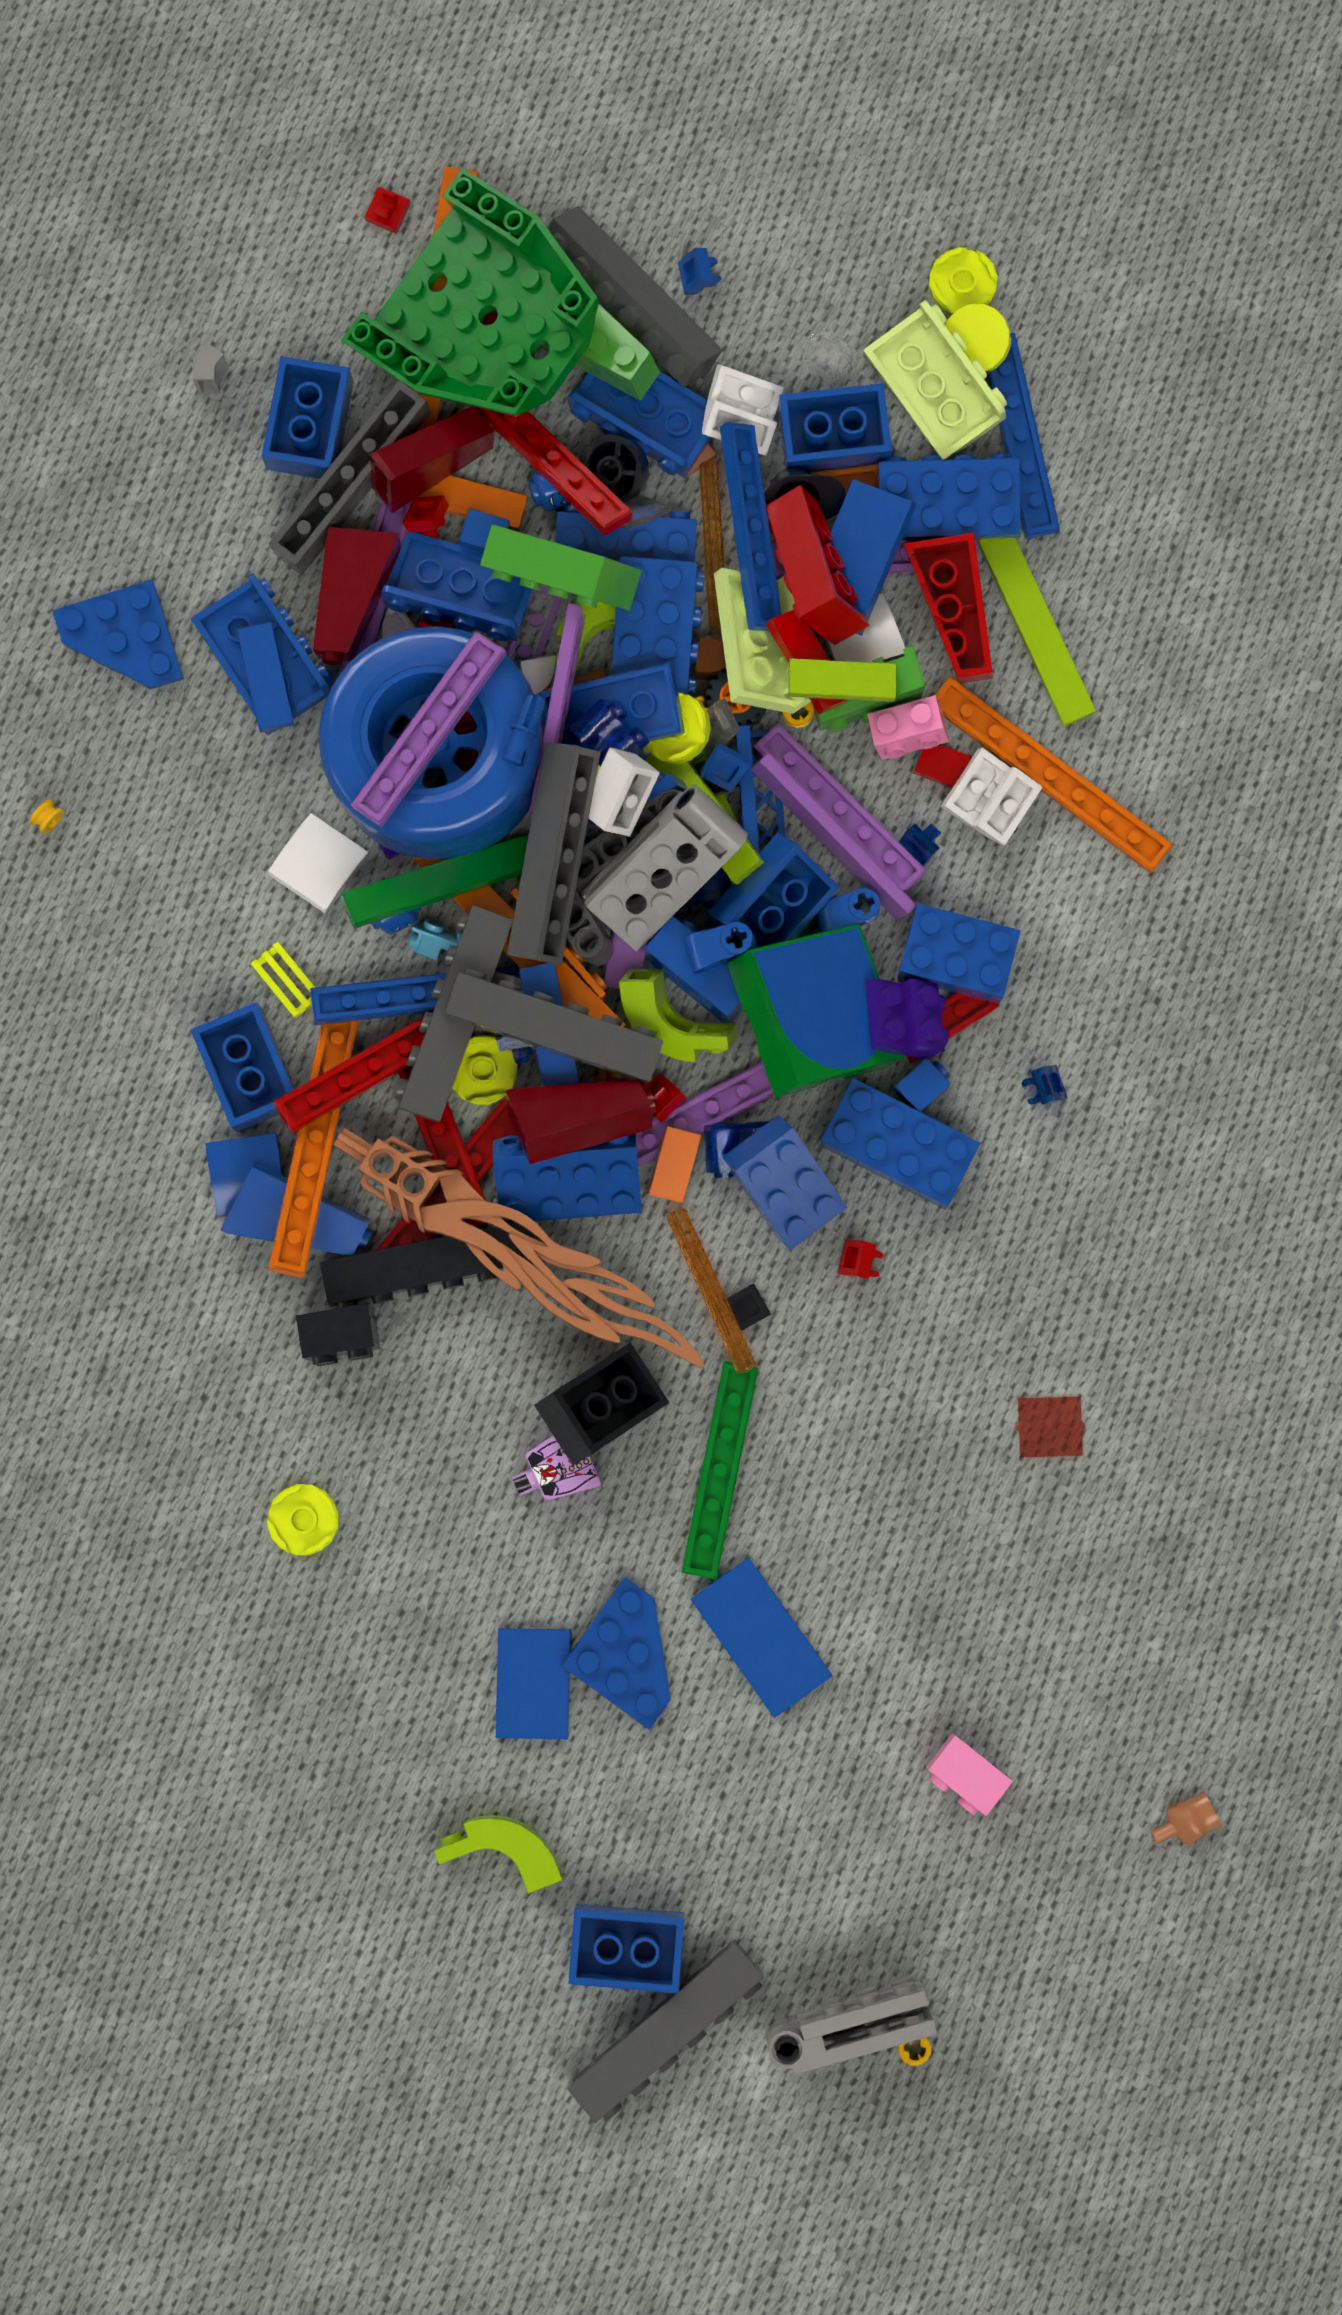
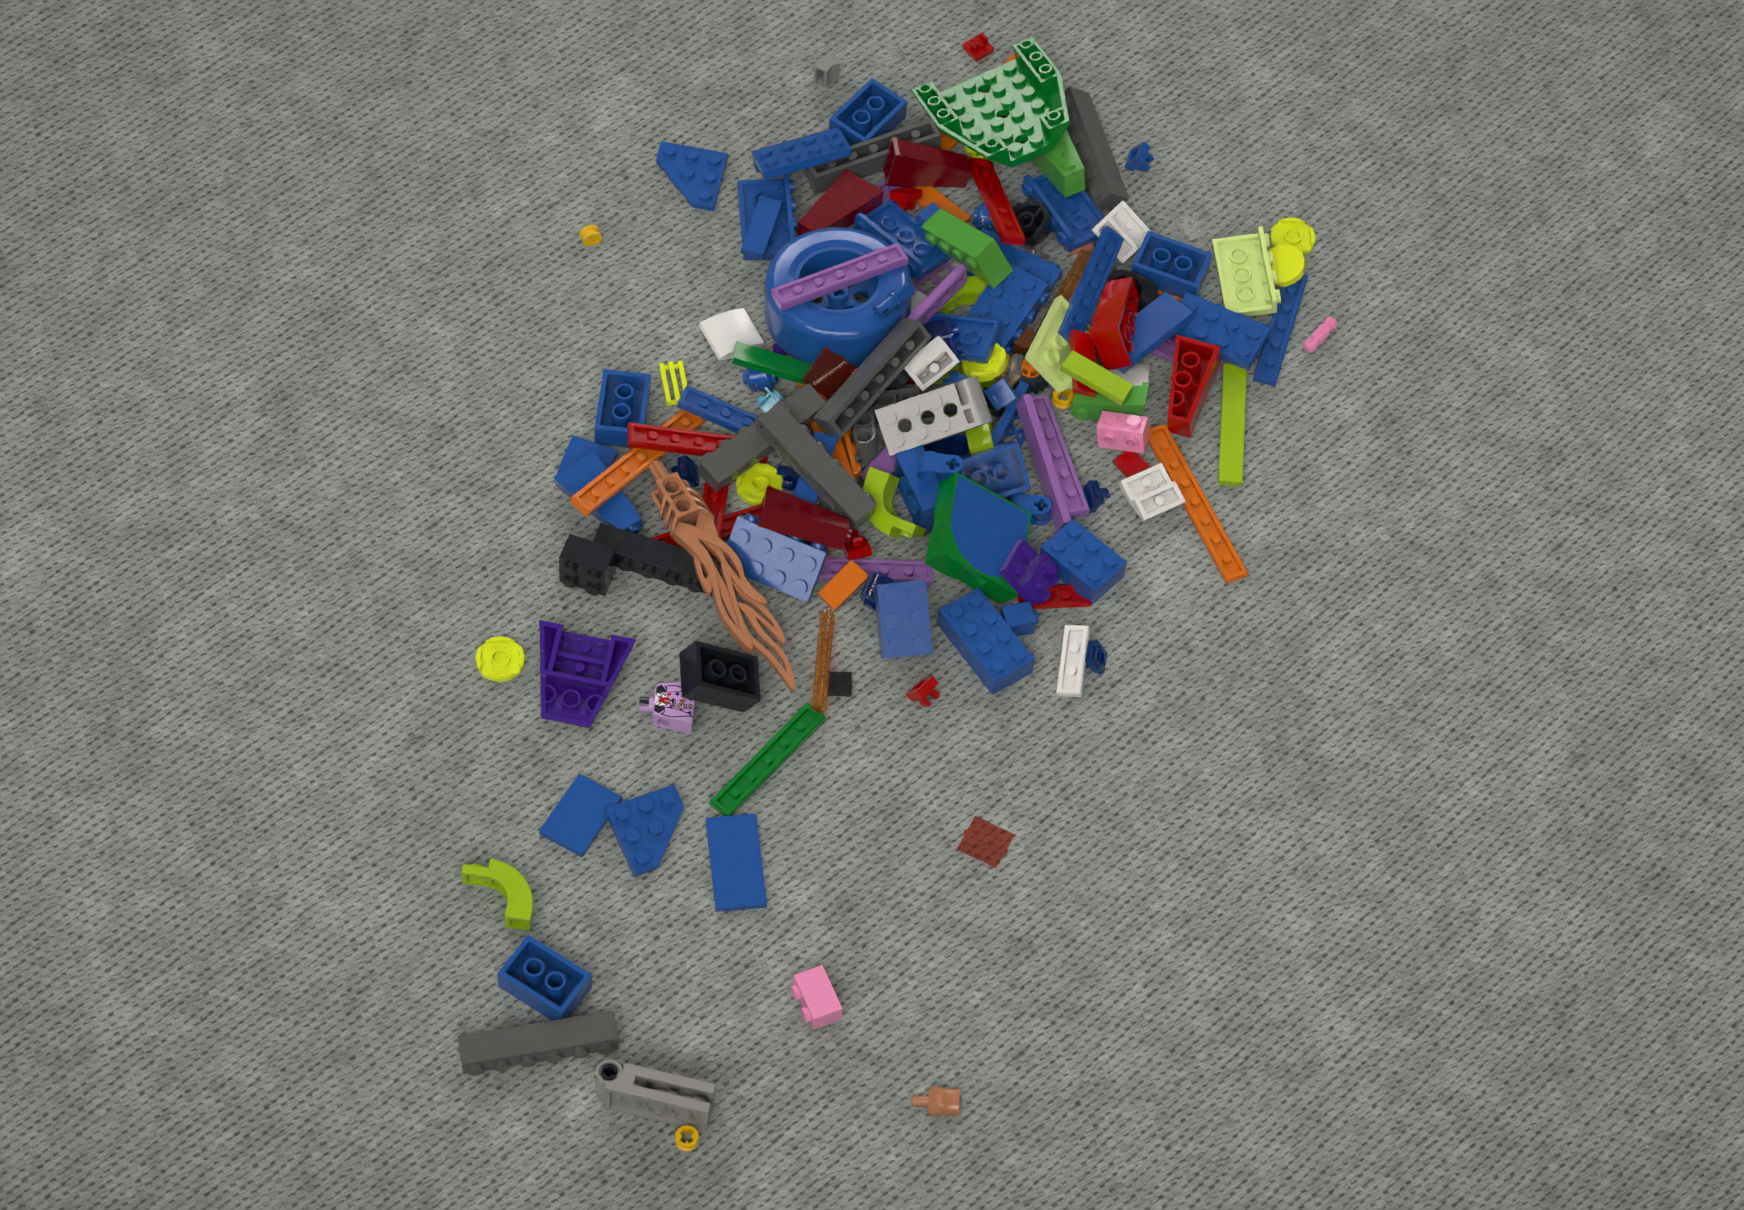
camera: 20 degrees right, 25 degrees down
(255, 534) = (801, 153): none -> blue bracket
(382, 1110) = (687, 470): none -> clear blue tile
(414, 1488) = (577, 673): none -> dark purple wedge
(487, 867) = (828, 372): none -> clear red piece
(1023, 1107) = (1073, 661): none -> white tile
(1077, 418) = (1320, 334): none -> bright pink axle

